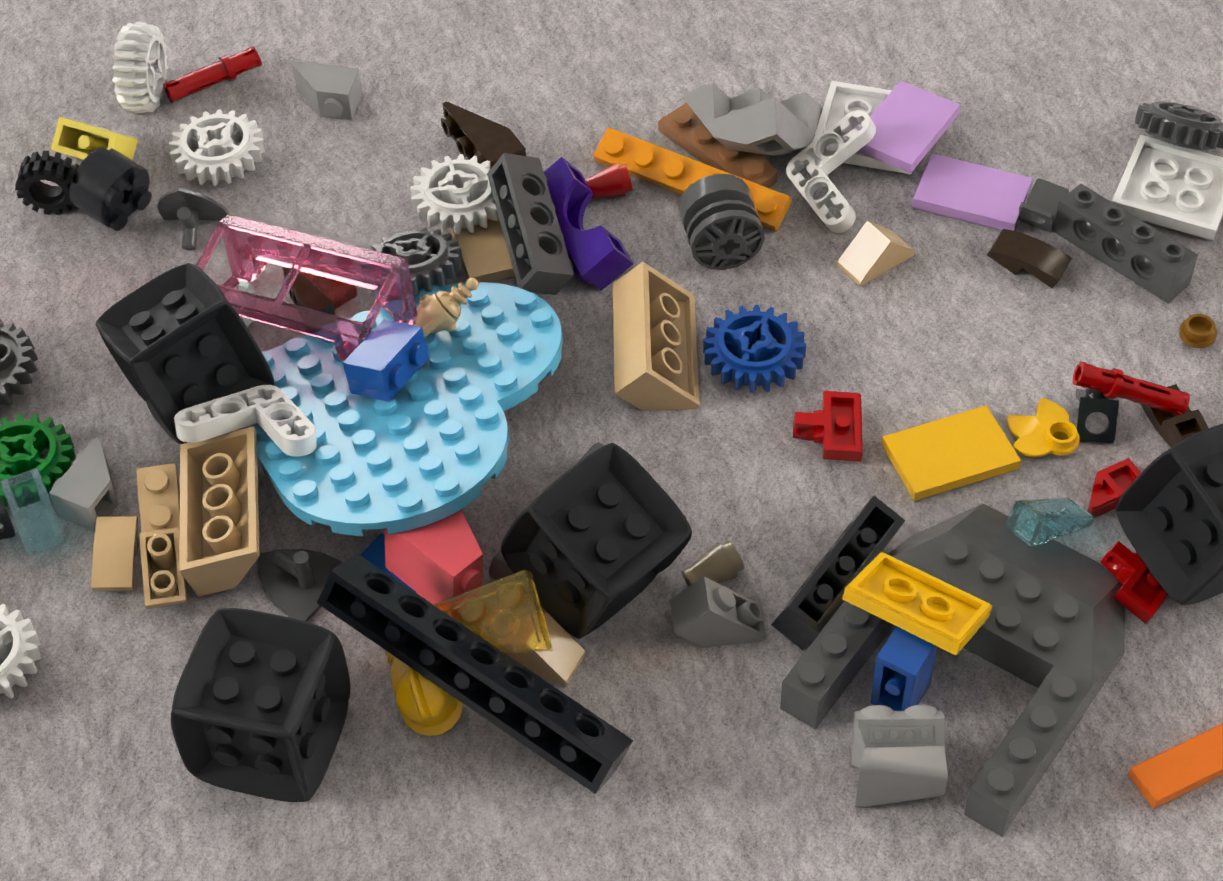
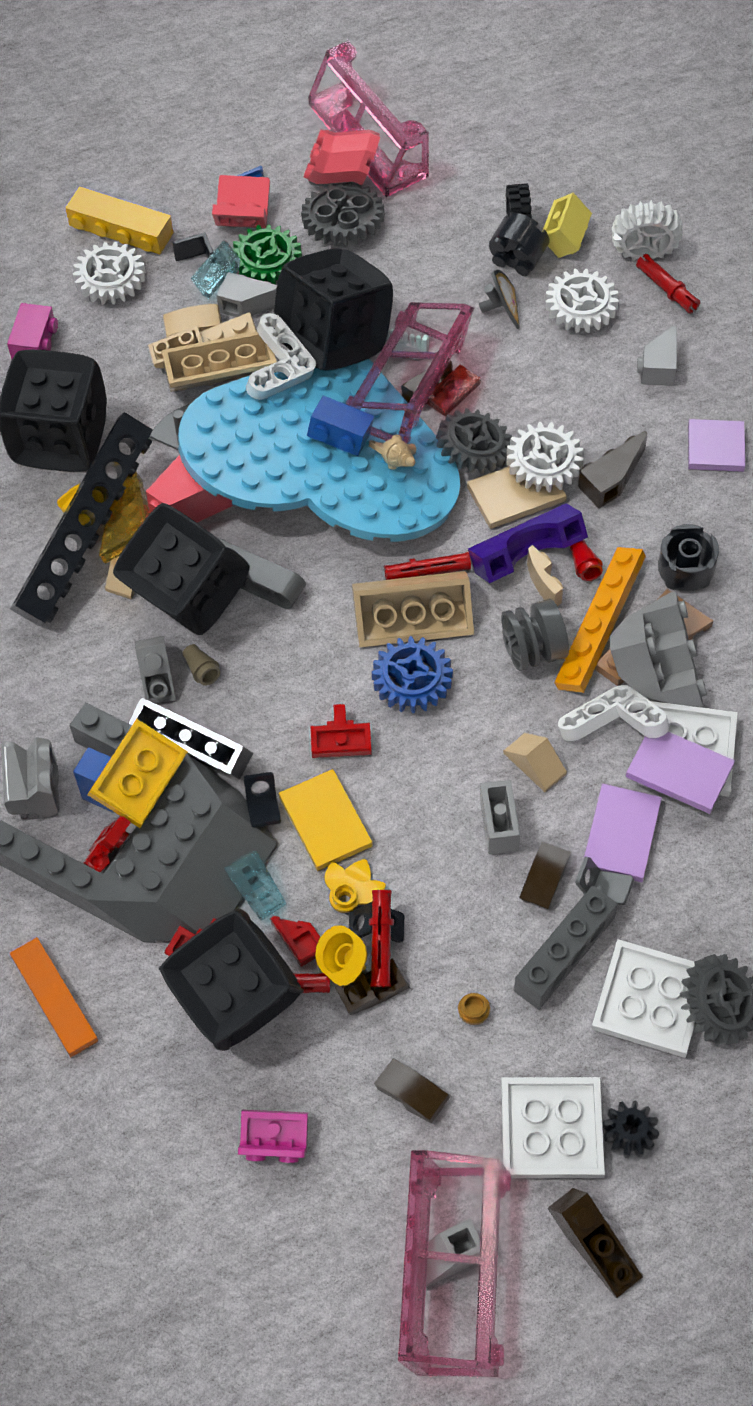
camera: 85 degrees right, 10 degrees up
(70, 762) = (32, 328): none -> dark pink brick
(462, 64) = (716, 445): none -> lavender tile
(530, 224) = (548, 479): dark grey brick -> none
(594, 336) = (459, 561): none -> red pin
(626, 92) = (688, 558): none -> black brick
(631, 221) = (540, 572): none -> tan slope
(935, 509) = (263, 806): none -> black bracket
(963, 278) = (499, 817): none -> light grey brick
(997, 667) = (110, 837): none -> red hinge
(1157, 423) = (341, 955): none -> yellow piece

